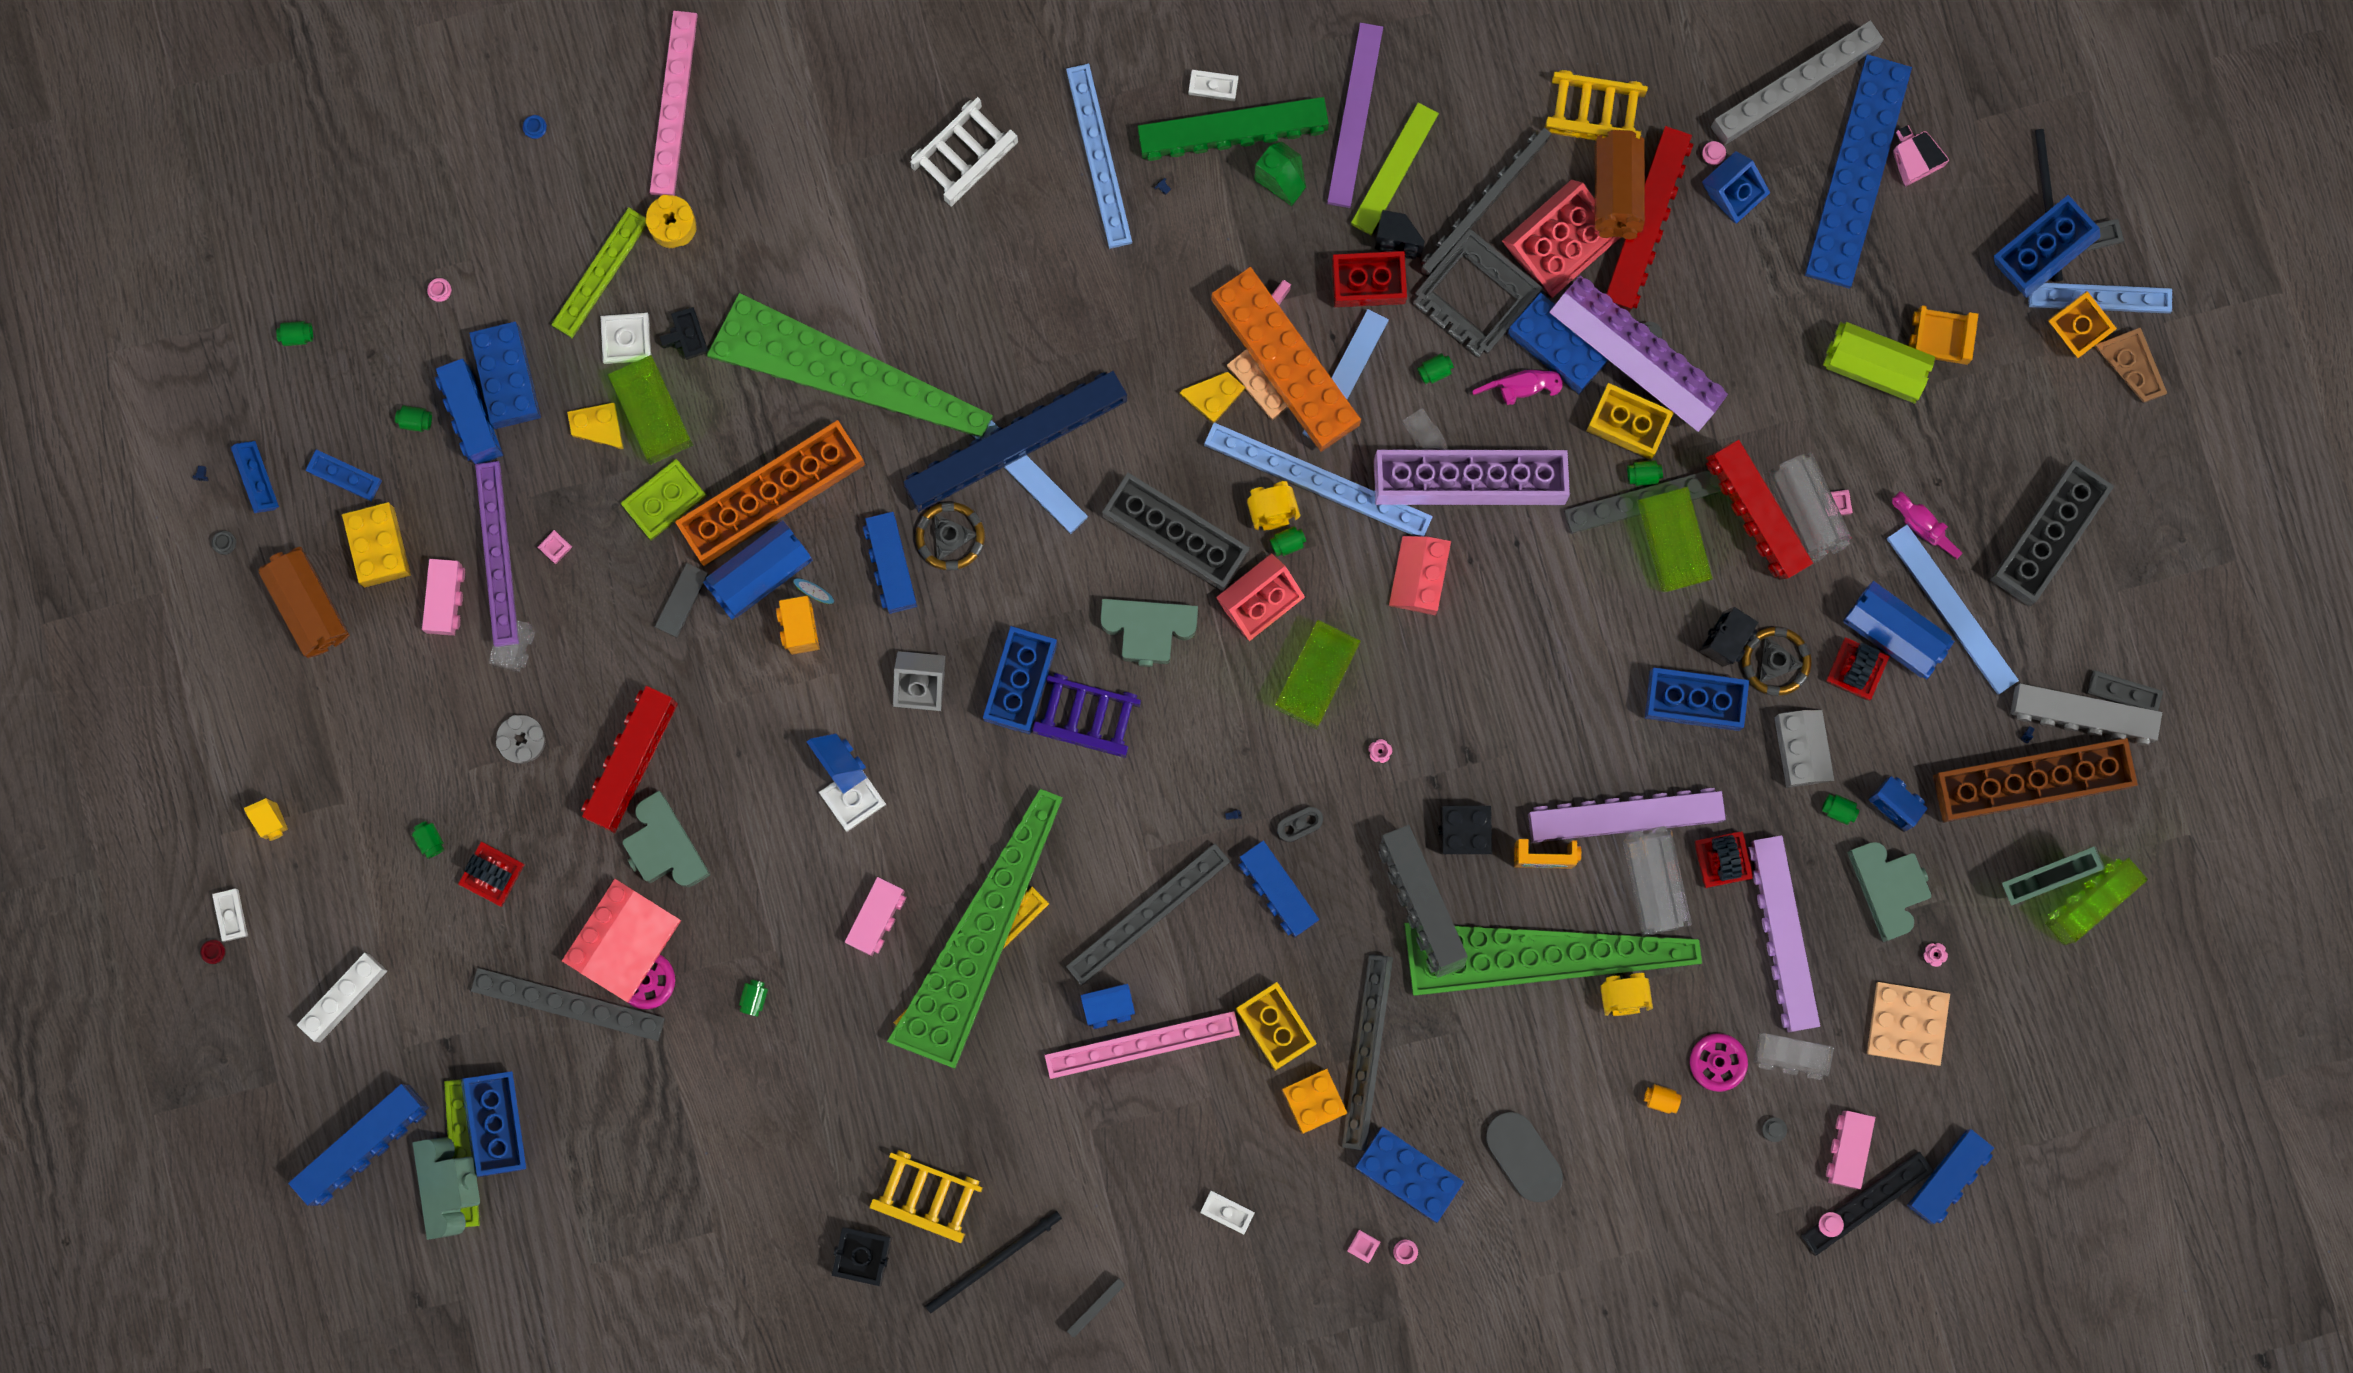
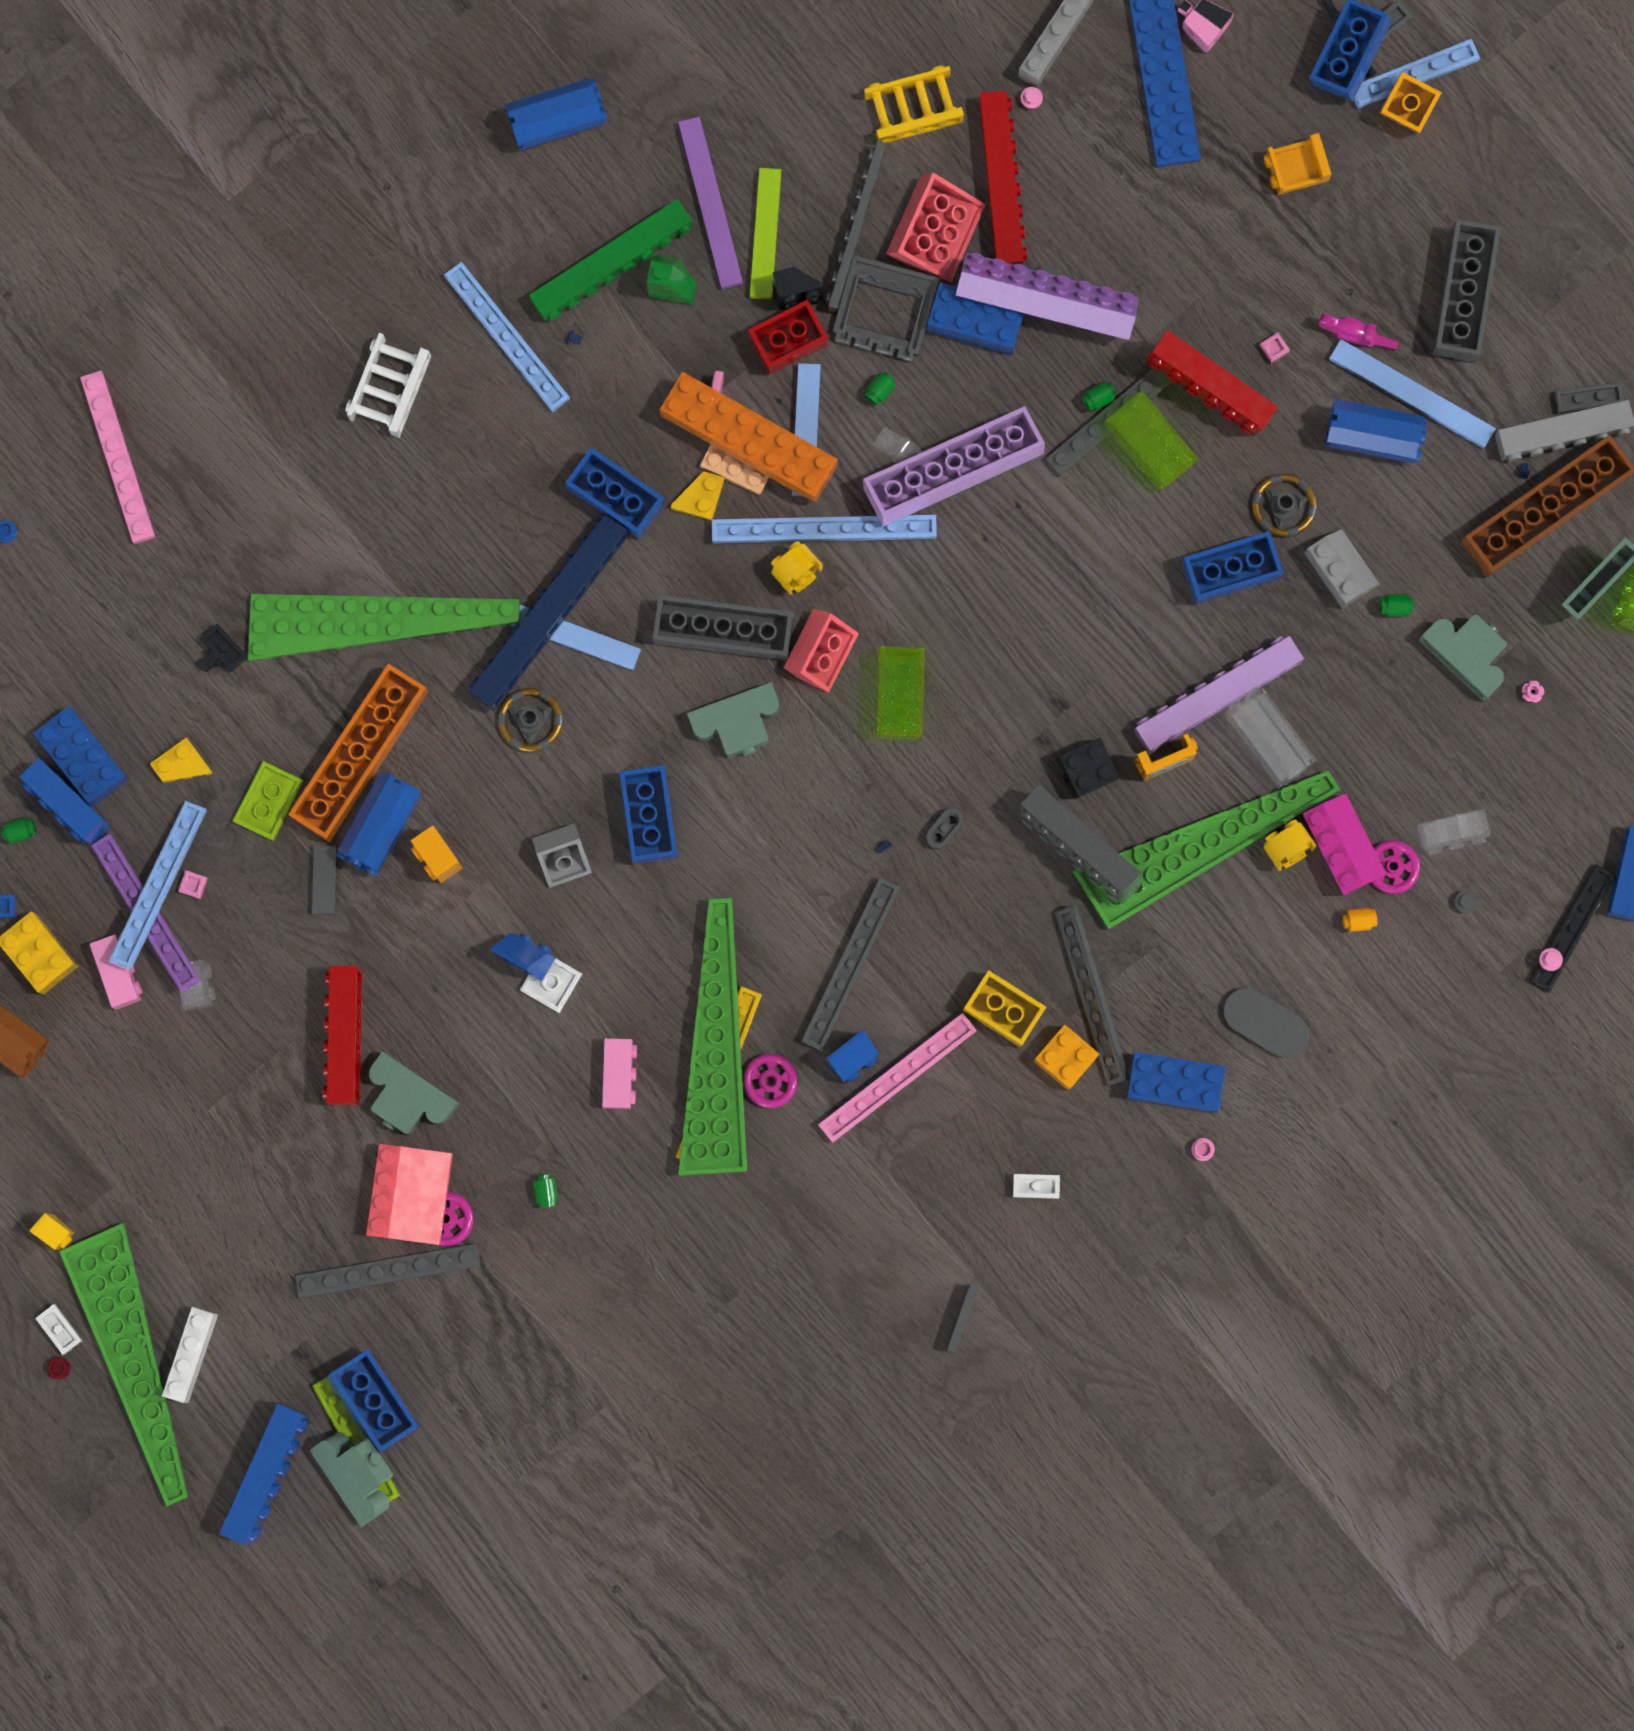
camera: 20 degrees left, 0 degrees up
(292, 916) = (114, 1306): none -> bright green wing
(428, 839) = (201, 1185): green brick -> none
(491, 874) = (269, 1189): red plate -> none
(519, 533) = (157, 885): none -> light blue tile
(524, 752) = (249, 1072): light grey plate -> none
(600, 273) = (122, 631): lime tile -> none
(625, 337) = (170, 677): white tile -> none
(650, 409) = (221, 728): clear neon green brick -> none
(669, 208) = (171, 568): yellow brick -> none
(813, 591) = (434, 819): sticker -> none
(861, 1256) = (742, 1367): black brick -> none
(891, 563) = (490, 765): blue brick -> none
(908, 1211) = (786, 1310): yellow fence -> none
(1038, 995) = (789, 1076): none -> dark pink plate
(1045, 1224) = (886, 1268): black bar -> none
(1093, 738) = (734, 836): dark purple fence -> none
(1132, 354) = (615, 493): none -> blue brick
(1213, 85) = (577, 232): white plate -> none
(1279, 889) = (952, 891): blue brick -> none
(1288, 541) = (822, 592): green brick -> none
(1363, 1246) = (1165, 1161): bright pink tile -> none
(1380, 744) = (988, 730): bright pink plate -> none
(1420, 574) = (948, 568): coral slope -> none
(1524, 384) = (962, 367): dark pink animal -> none
(1619, 184) = (964, 160): dark orange brick -> none
(1629, 421) = (1066, 358): yellow brick -> none
(1681, 1019) = (1344, 844): none -> dark pink slope
(1723, 859) = (1317, 693): plate -> none
(1729, 637) = (1235, 502): black brick -> none
(1736, 186) = (1063, 117): blue slope -> none
(1784, 934) = (1397, 732): lavender brick -> none
(1809, 506) = (1252, 360): clear brick -> none
(1850, 1149) = (1538, 889): bright pink brick -> none
(1857, 668) = (1355, 480): plate -> none
(1879, 362) = (1253, 211): lime brick -> none
(1898, 803) = (1443, 578): blue slope -> none
(1908, 1024) = (1537, 761): light nougat plate -> none
(2134, 363) = (1469, 116): medium nougat wing -> none

